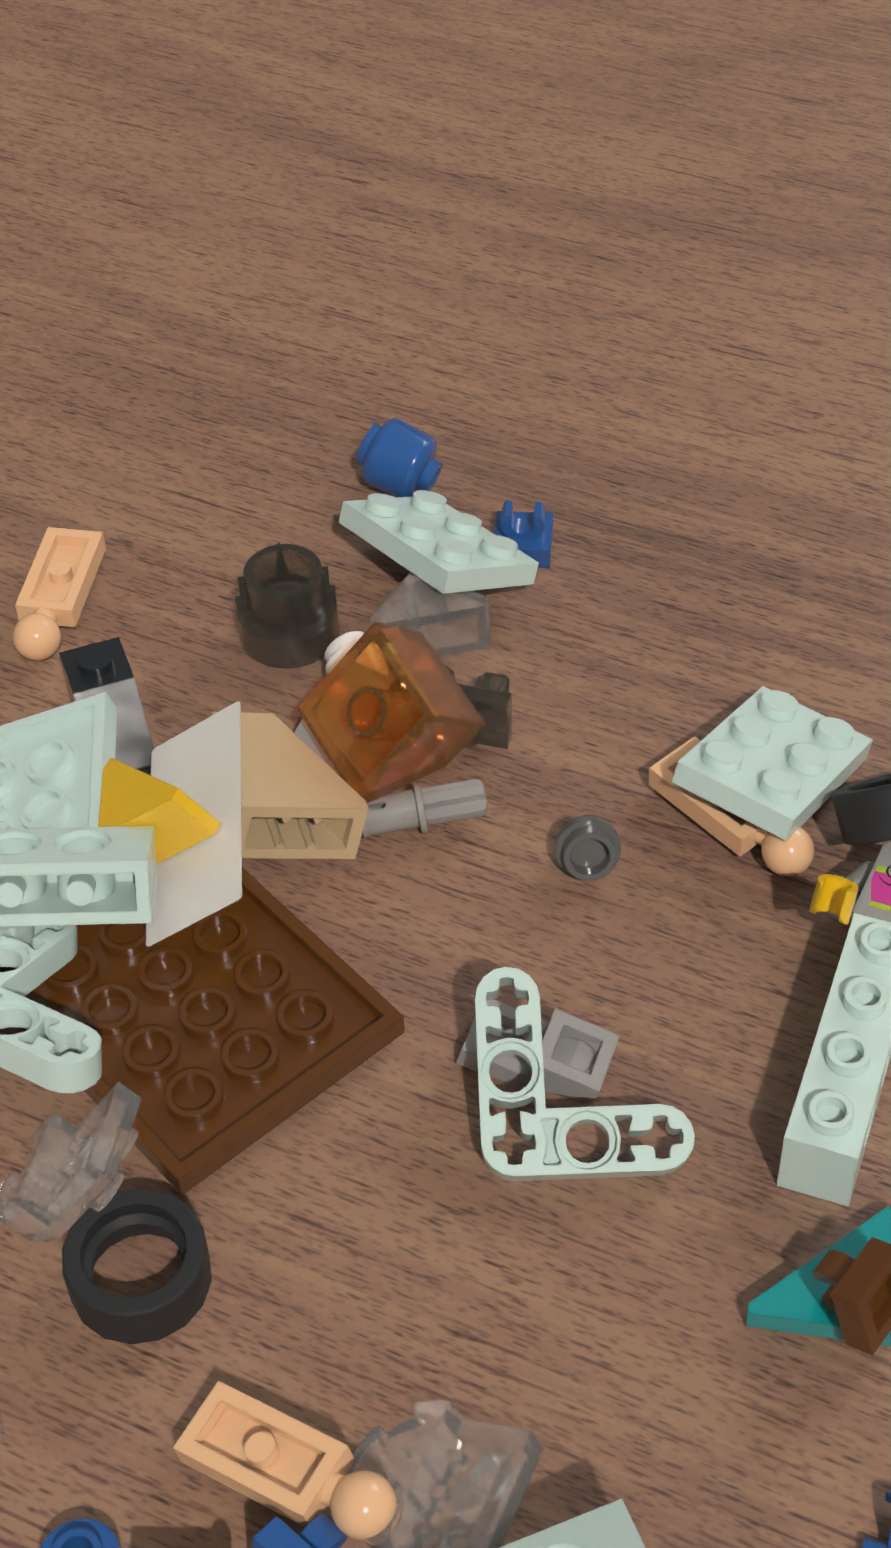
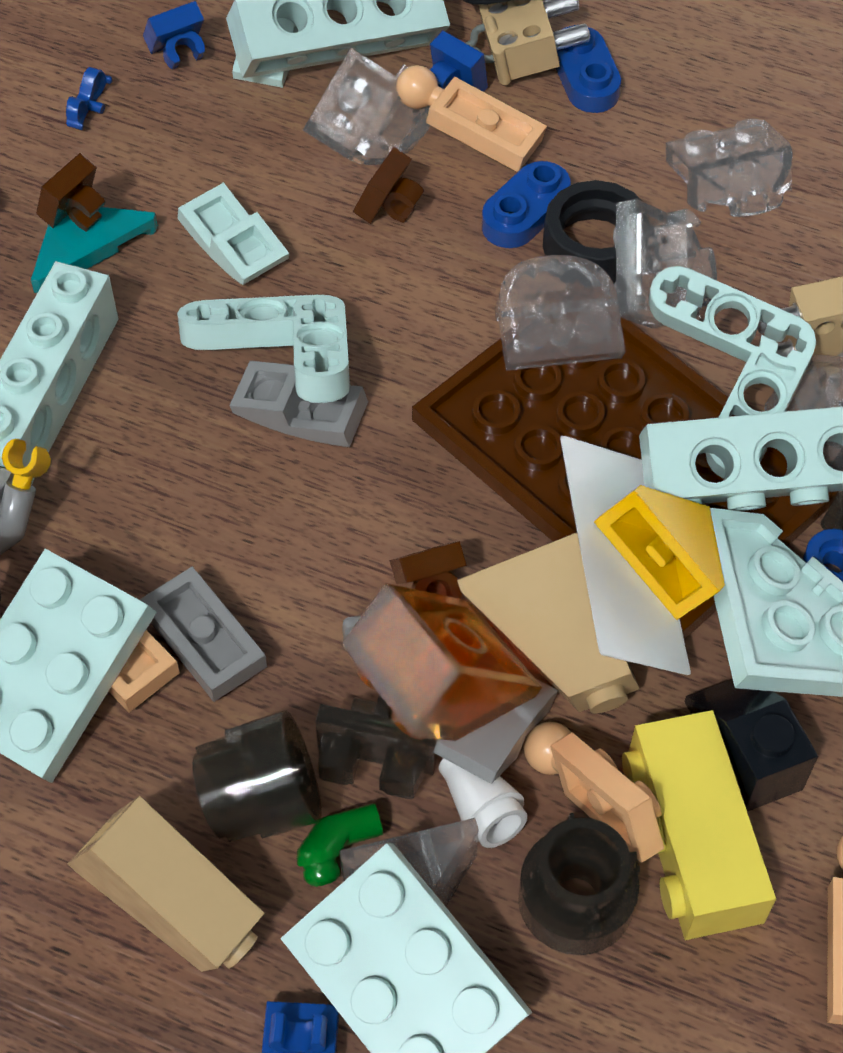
camera: 175 degrees right, 10 degrees up
(177, 649) = (710, 849): none -> light yellow brick
(215, 1100) = (558, 313): none -> clear slope
(229, 1338) = (526, 196): none -> blue plate
(261, 662) = (597, 786): none -> light nougat plate
(397, 856) = (431, 566): none -> reddish brown tile
(421, 1338) = (389, 190): none -> reddish brown tile
(500, 655) = (329, 836): none -> green arm
(562, 663) = (257, 779): none -> clear smoke piece
(587, 847) = (239, 593): dark grey plate -> none
(633, 804) = (204, 634): none -> light grey plate
(635, 1290) = (230, 236): none -> light aqua slope
(646, 604) = (169, 887): none -> tan slope

